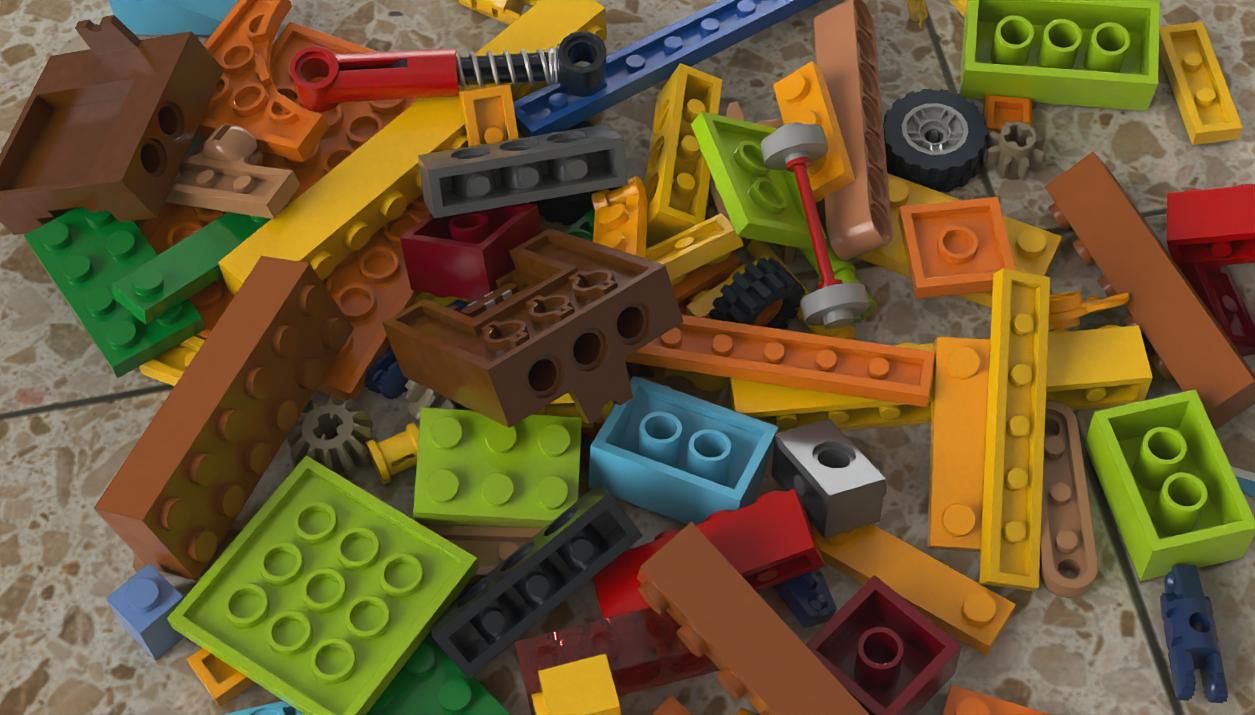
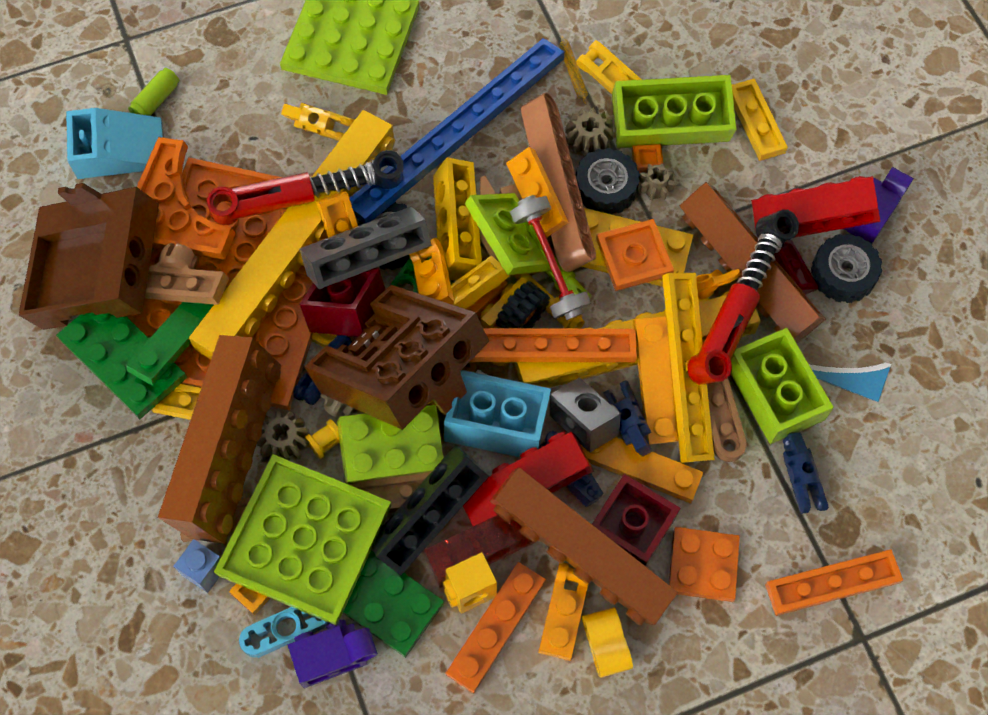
camera: 15 degrees left, 10 degrees up
(906, 501) = (632, 422): none -> dark blue hinge
(917, 63) = (589, 131): none -> dark tan gear
(1122, 334) = (741, 301): none -> red piece

